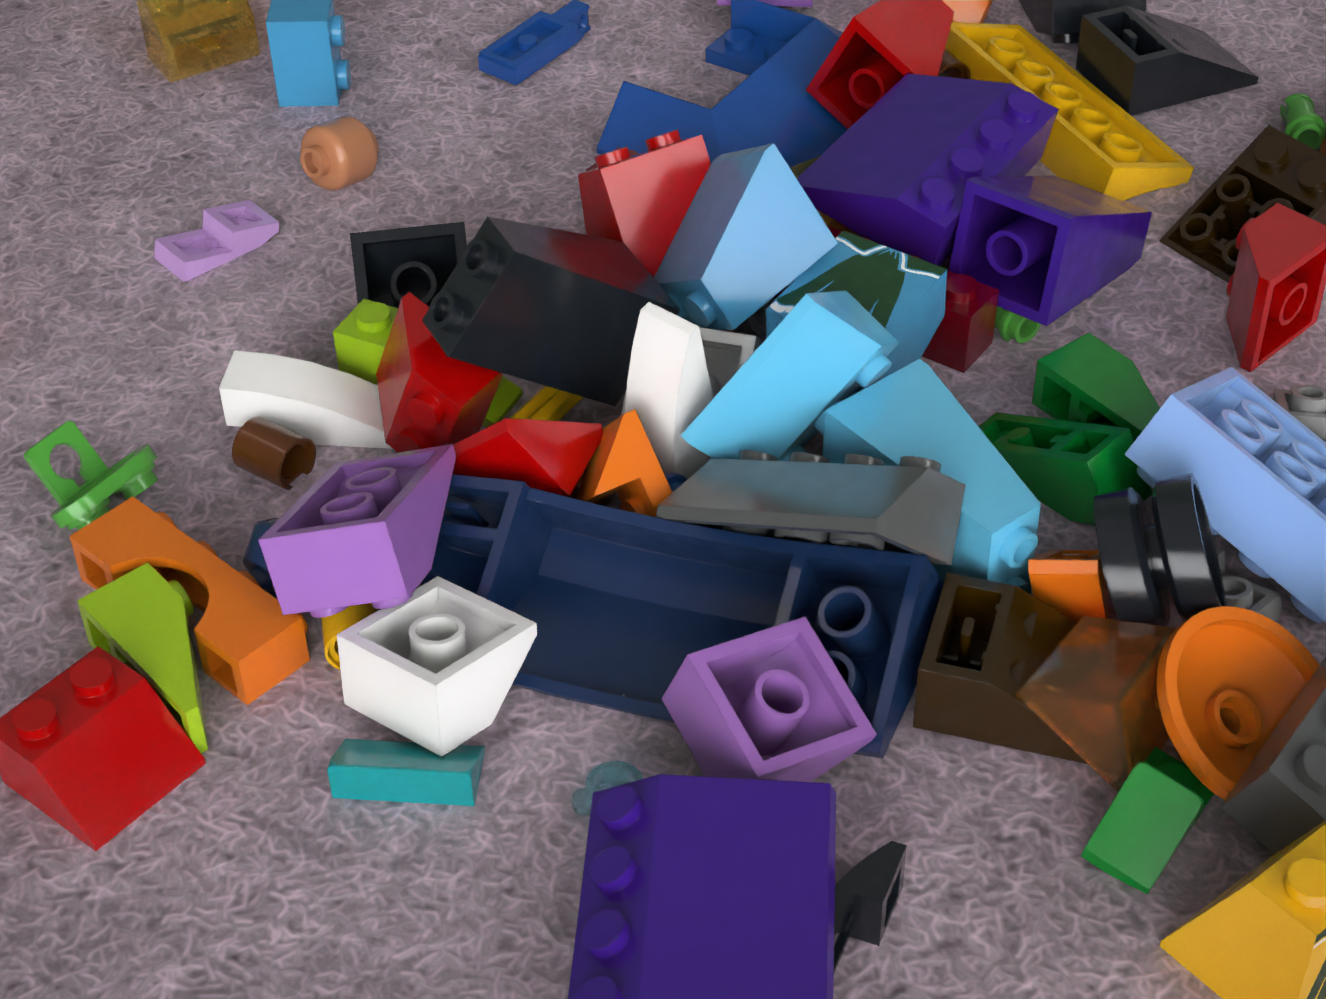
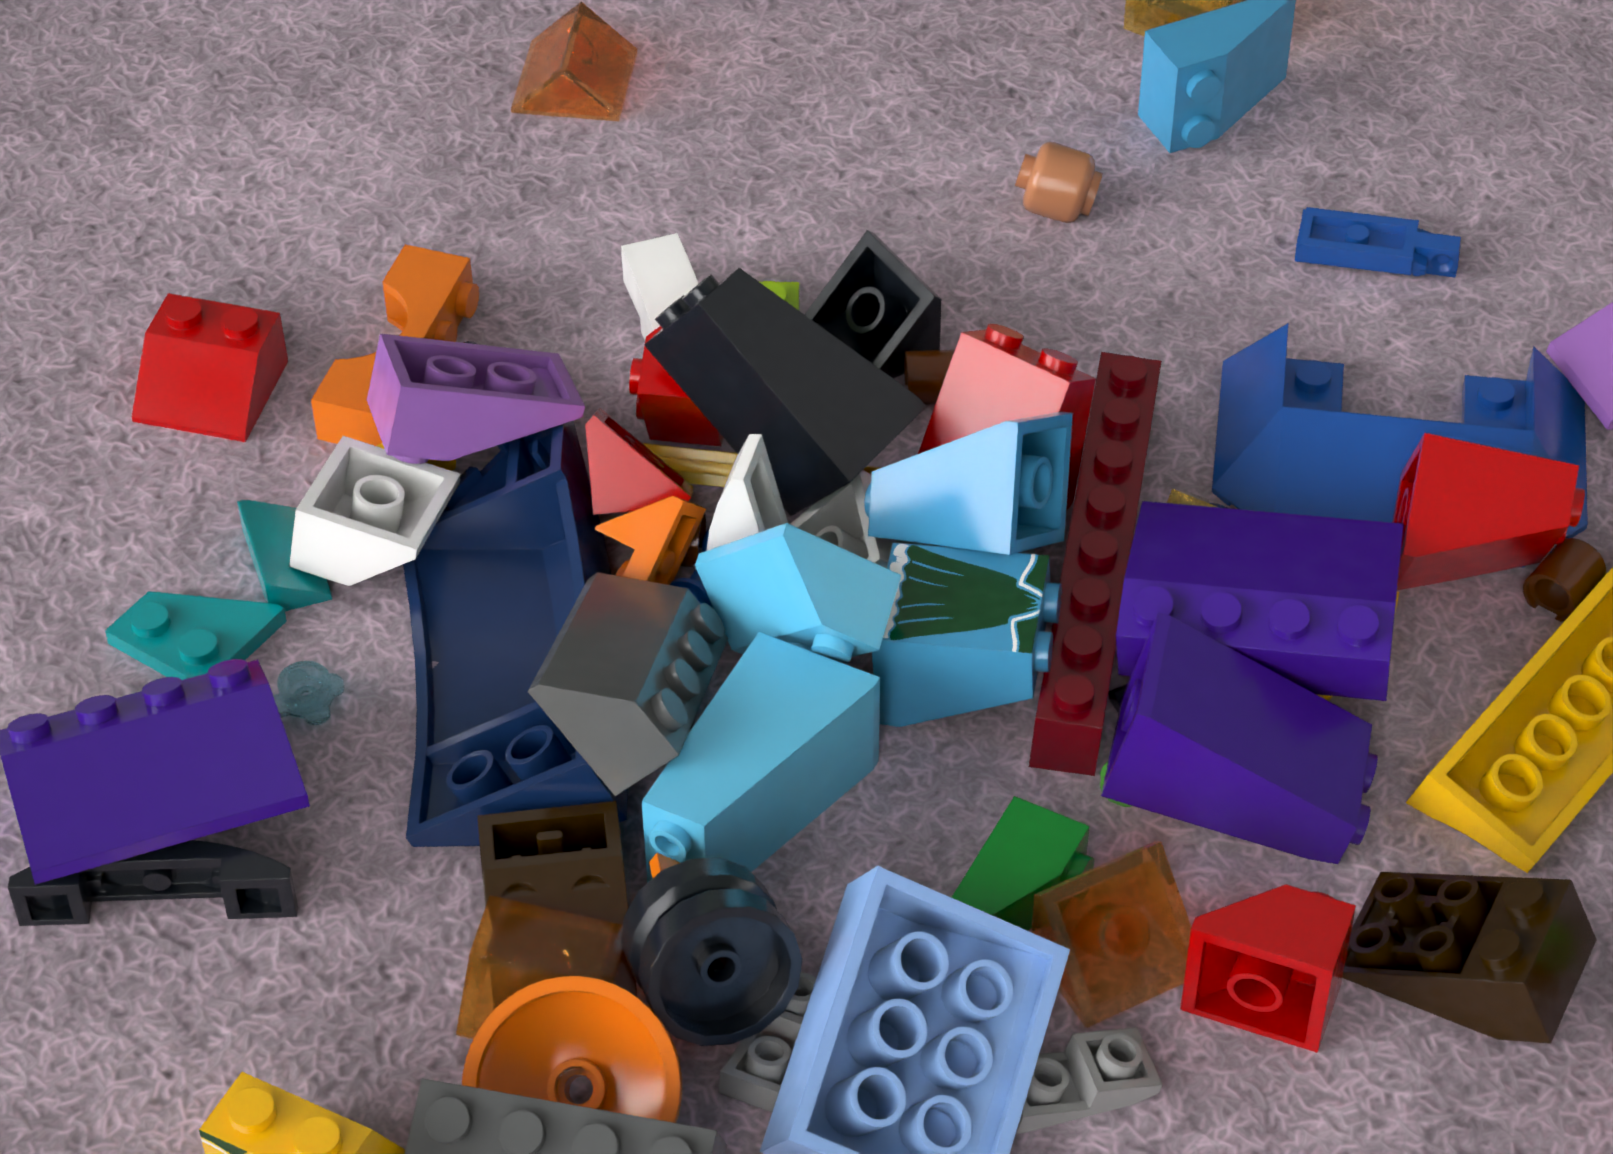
camera: 65 degrees right, 5 degrees up
(90, 500) = (523, 245): bright green bracket -> none
(148, 629) = (338, 327): lime slope -> none
(224, 235) = (903, 170): lavender slope -> none
(273, 452) = (601, 322): reddish brown beam -> none
(471, 873) = (192, 633): none -> teal wing
(767, 707) = (397, 737): medium lavender slope -> none
(1066, 460) = (901, 837): green slope -> none
(1147, 821) = (413, 1049): green slope -> none
(1171, 348) = (1121, 930): none -> clear orange slope

